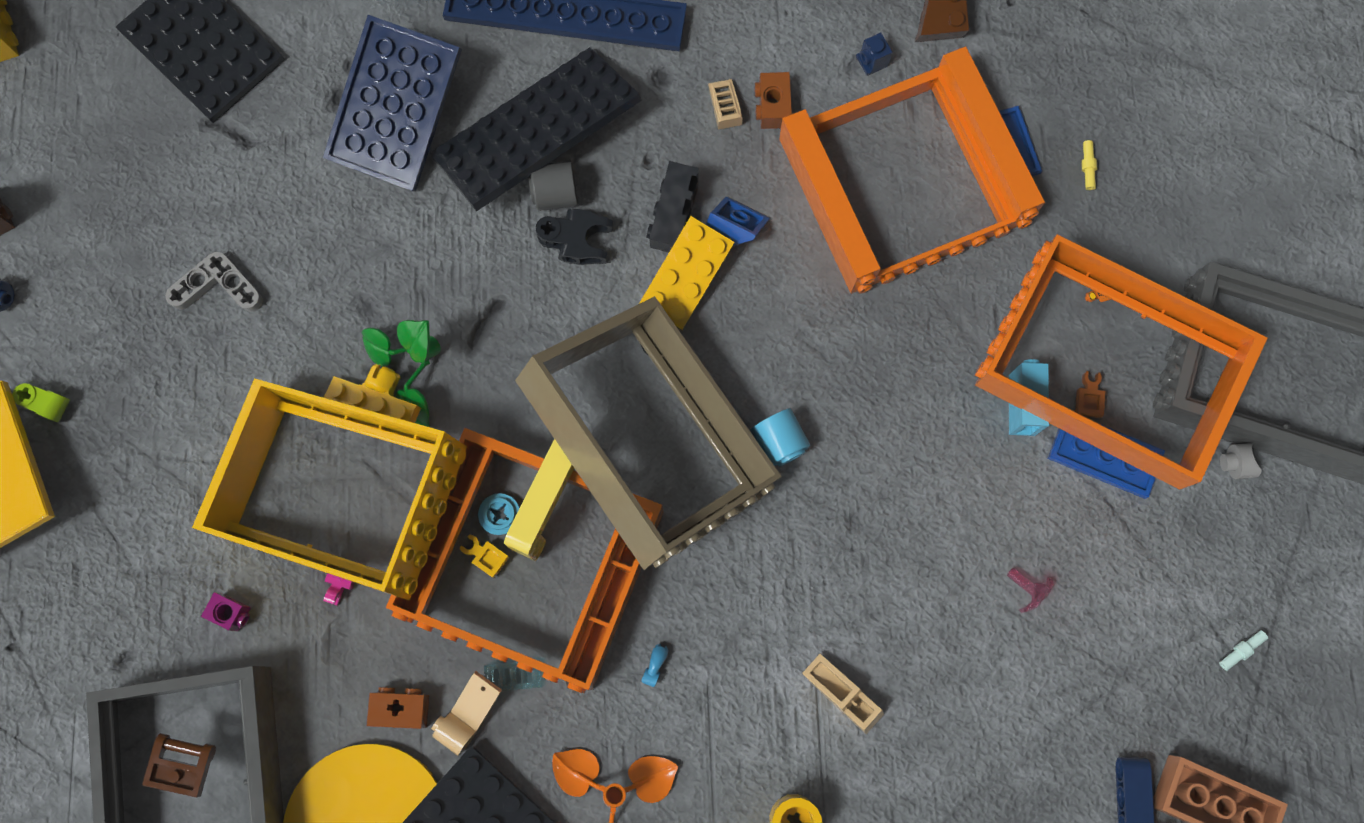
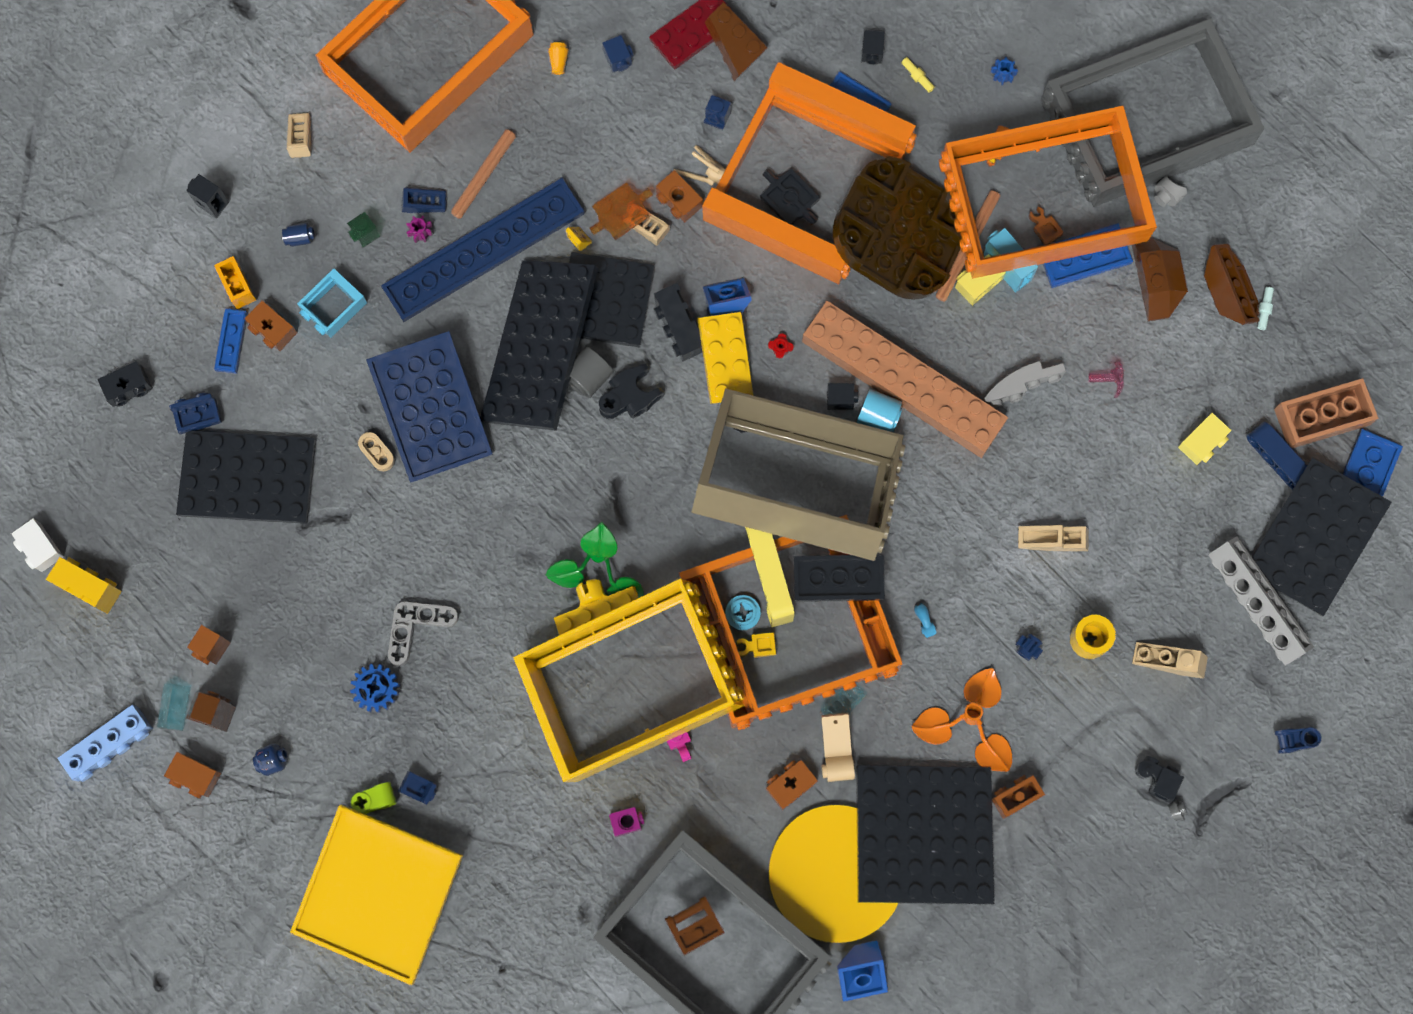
camera: 40 degrees left, 0 degrees up
(31, 153) = (208, 646): none -> dark orange brick
(85, 424) = (418, 788): none -> dark blue bracket
(130, 307) = (372, 697): none -> blue gear
(320, 110) = (377, 452): none -> tan plate
(599, 558) = (838, 578): none -> black plate
(637, 144) = (617, 300): none -> black plate
(655, 66) = (578, 237): none -> yellow slope
(712, 73) = (621, 211): none -> clear orange plate
(728, 777) = (1029, 647): none -> dark blue gear
(742, 309) = (780, 352): none -> red plate
(761, 394) = (841, 396): none -> black brick
(824, 102) = (713, 172): none -> tan plant
(833, 429) = (904, 378): none -> nougat brick
(873, 180) = (790, 197): none -> black plate
(930, 518) = (1014, 385): none -> light grey slope
(943, 283) = (897, 229): none -> dark brown plate
(976, 400) = (976, 288): none -> light yellow brick
(1025, 345) = (980, 221): none -> nougat axle
(1068, 107) = (872, 47): none -> black brick
(1073, 726) = (1204, 439): none -> light yellow brick
(1161, 535) = (1159, 277): none -> reddish brown wedge
(1175, 224) = (1004, 71): none -> blue gear
(1226, 601) = (1231, 286): none -> reddish brown wedge

